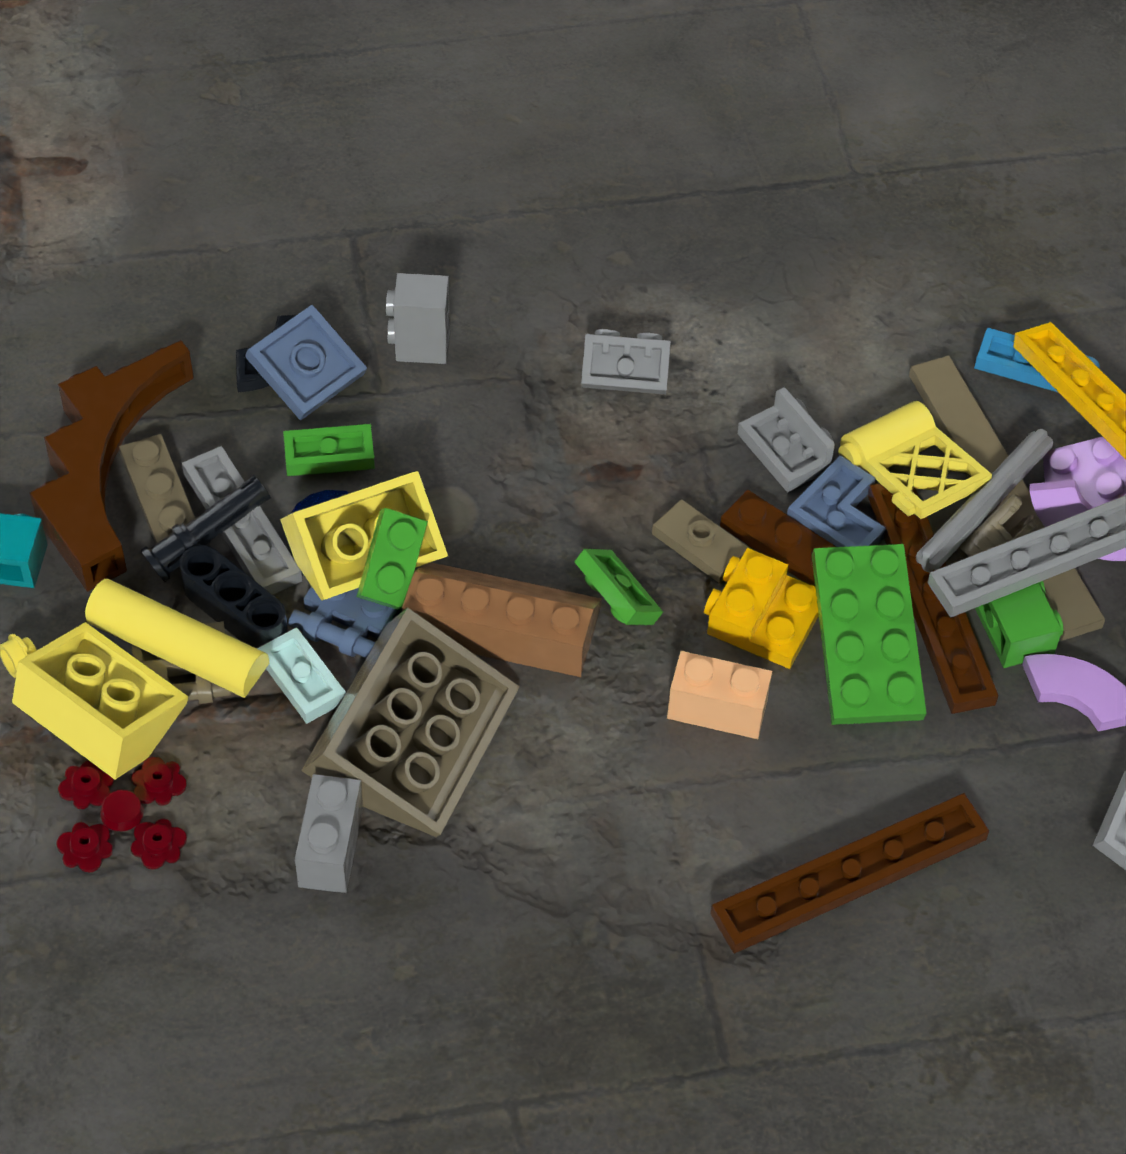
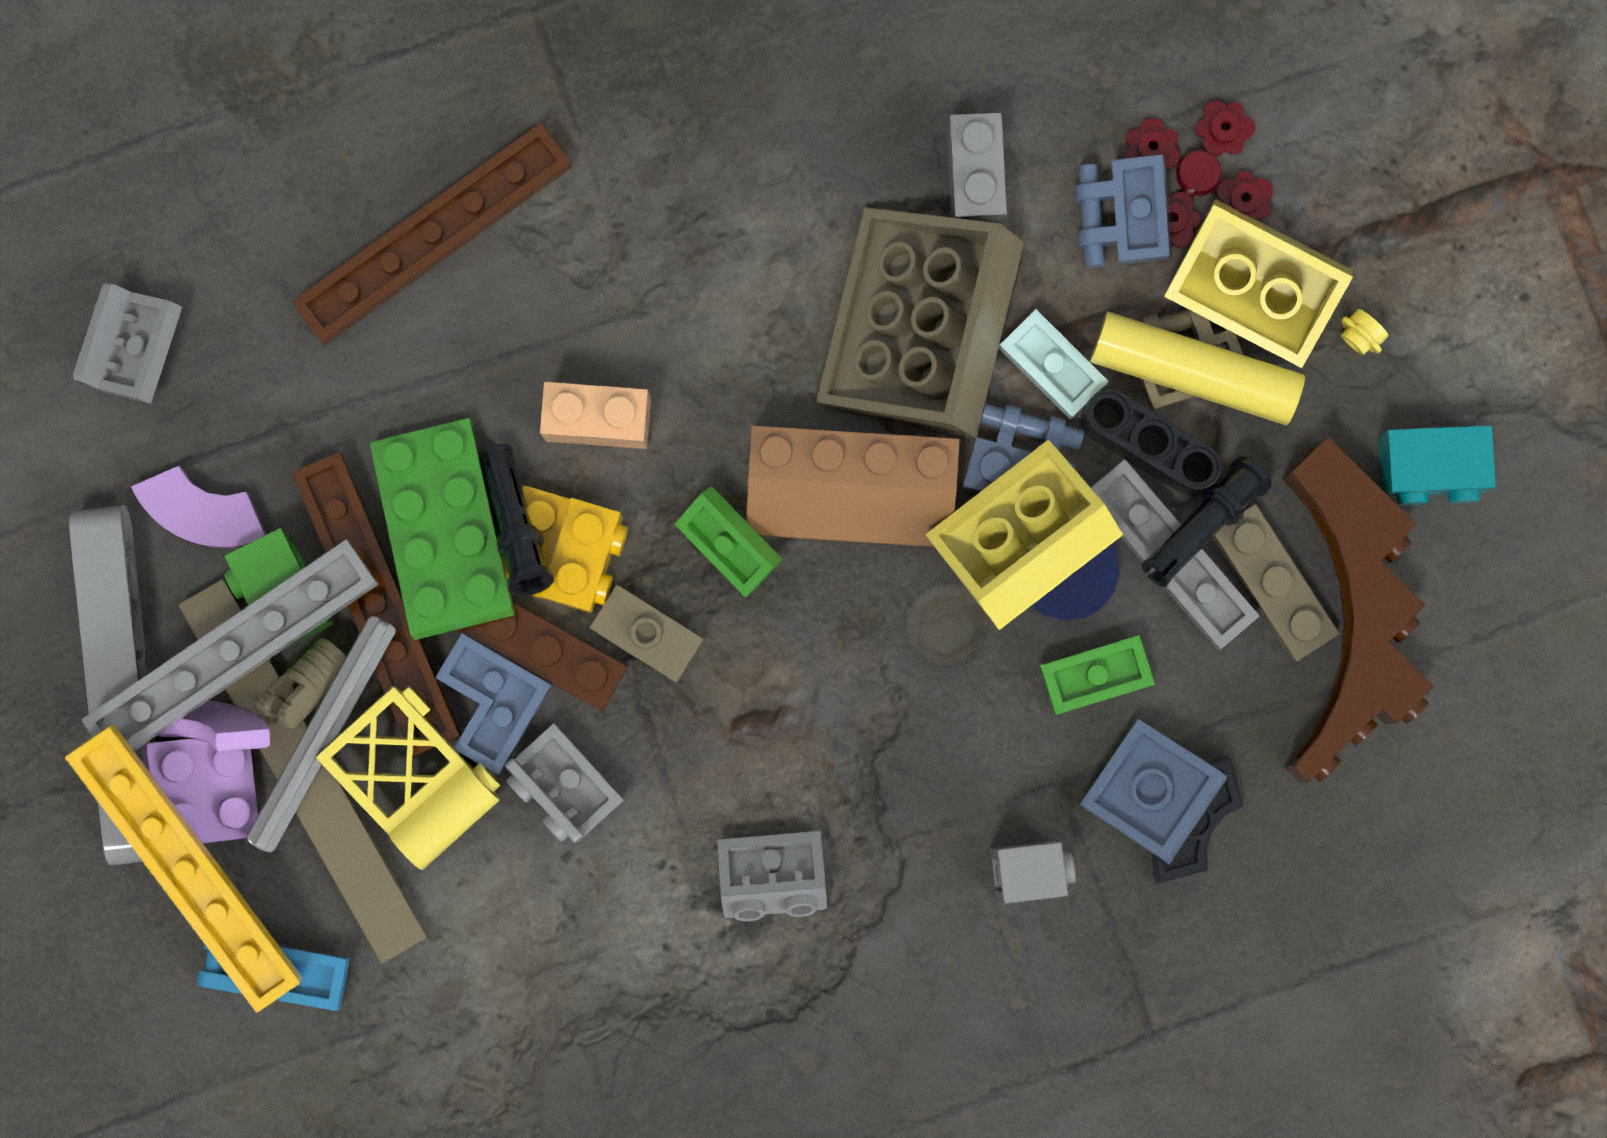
camera: 170 degrees right, 30 degrees up
(187, 776) = (1140, 211): none -> sand blue plate
(391, 558) = (984, 499): bright green plate -> none
(801, 601) = (519, 539): none -> black pin

